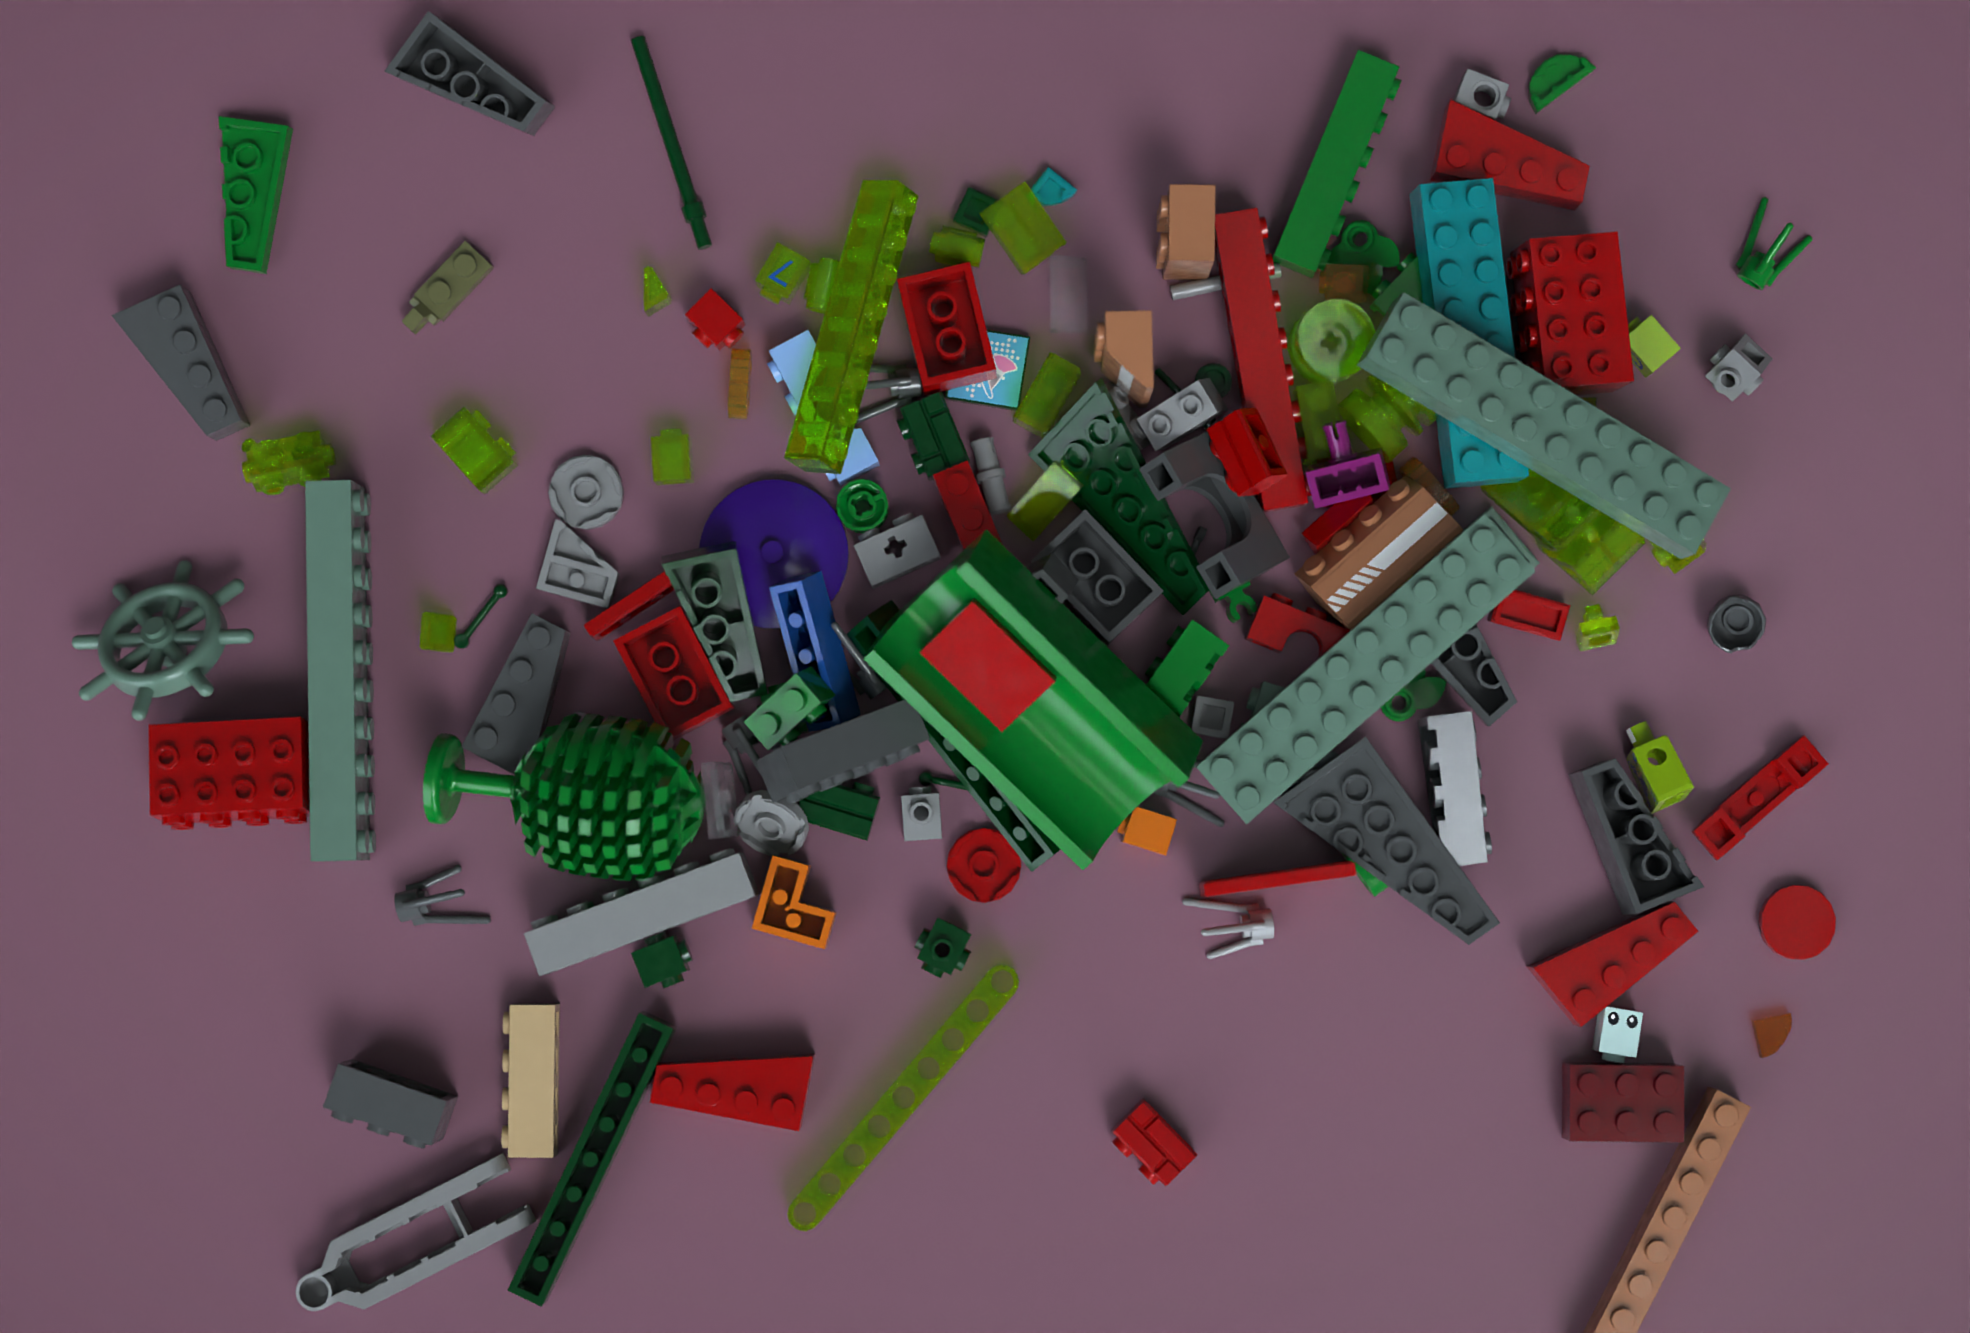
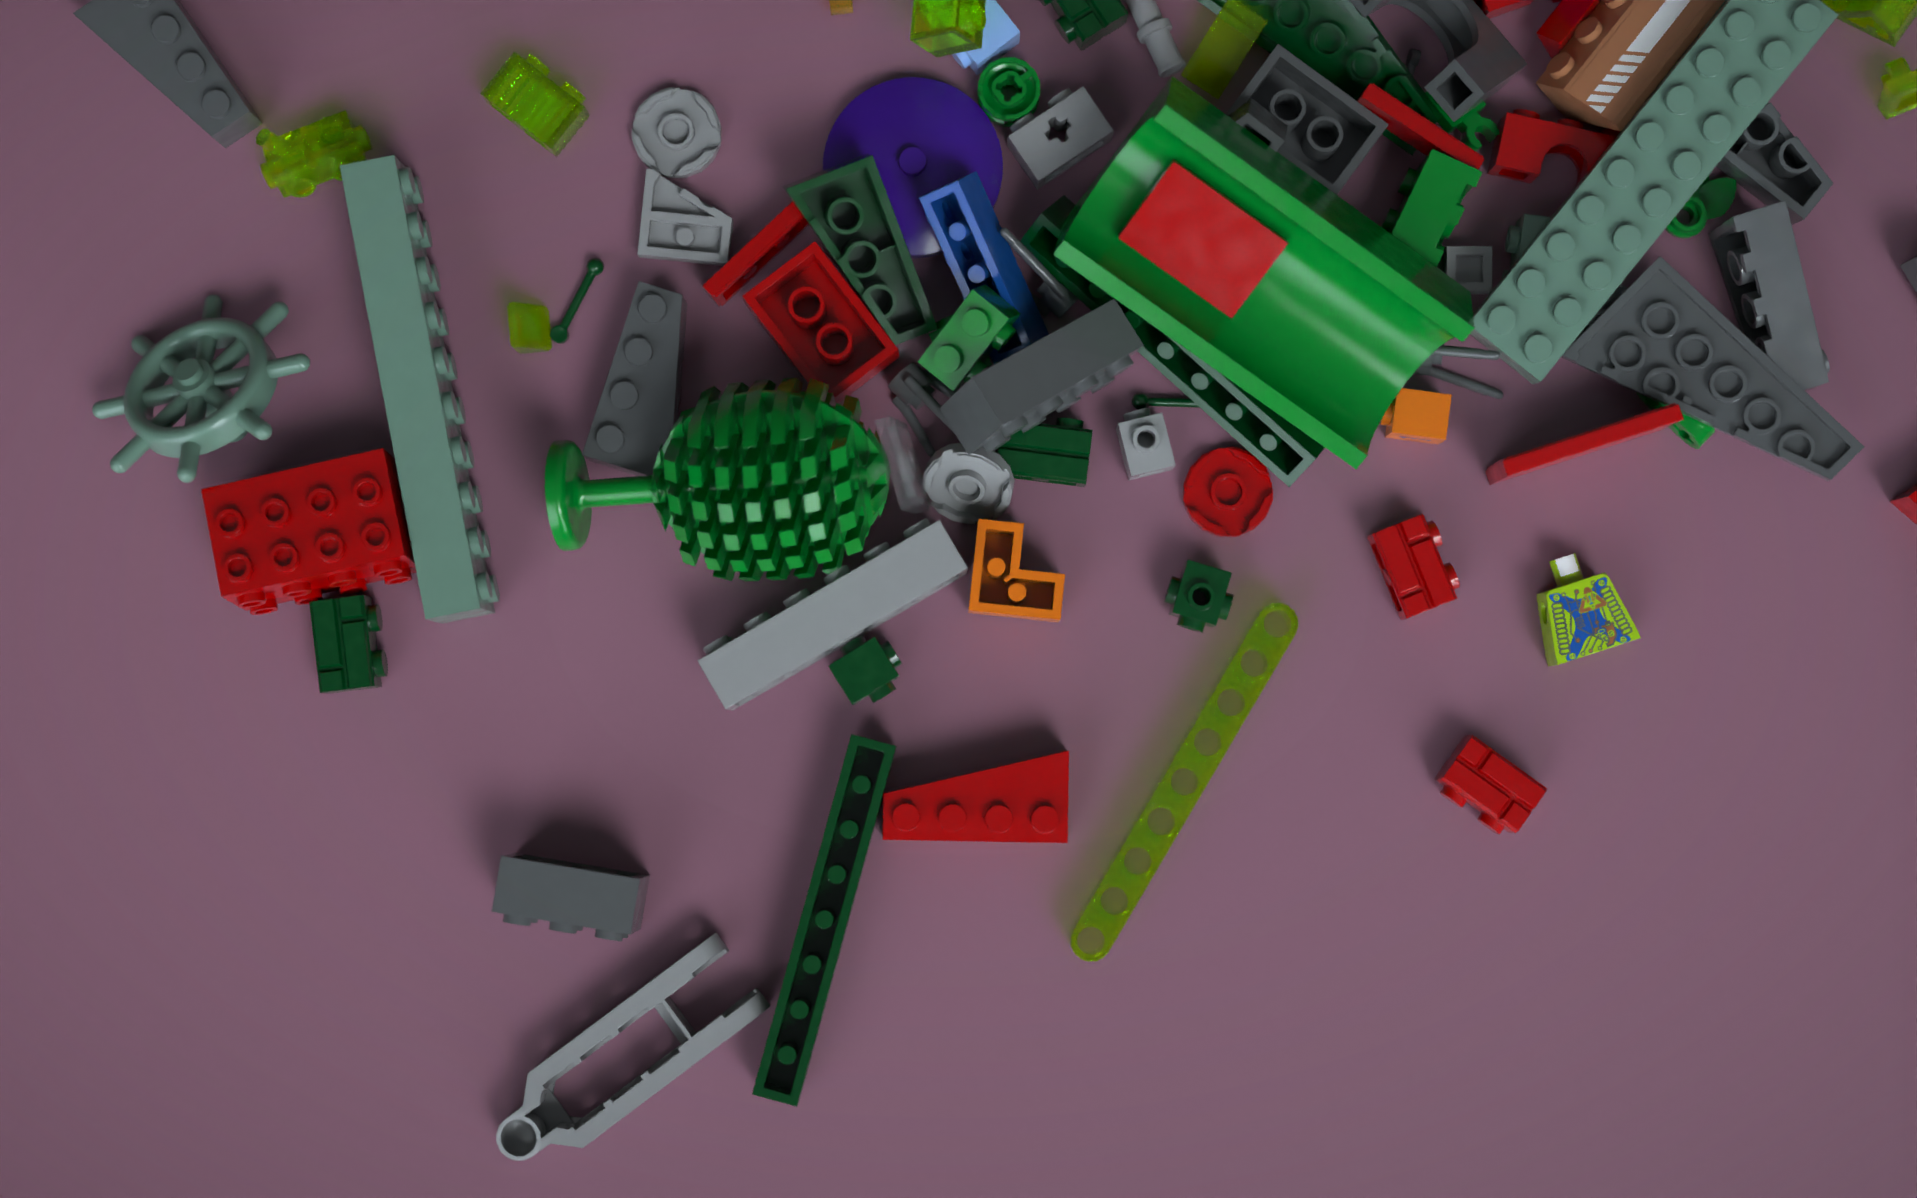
camera: 15 degrees left, 0 degrees up
(245, 866) = (347, 644): none -> dark green brick
(414, 903) = (558, 653): dark grey plant -> none
(533, 1080) = (736, 839): tan brick -> none
(672, 458) = (772, 73): clear neon green brick -> none
(964, 503) = (1127, 62): red arch -> none
(1123, 953) = (1413, 566): none -> red brick
(1187, 599) = (1415, 128): none -> red tile
(1253, 1016) = (1581, 614): none -> torso
(1256, 924) = (1561, 507): light grey plant -> none
(1531, 614) = (1825, 85): red tile -> none

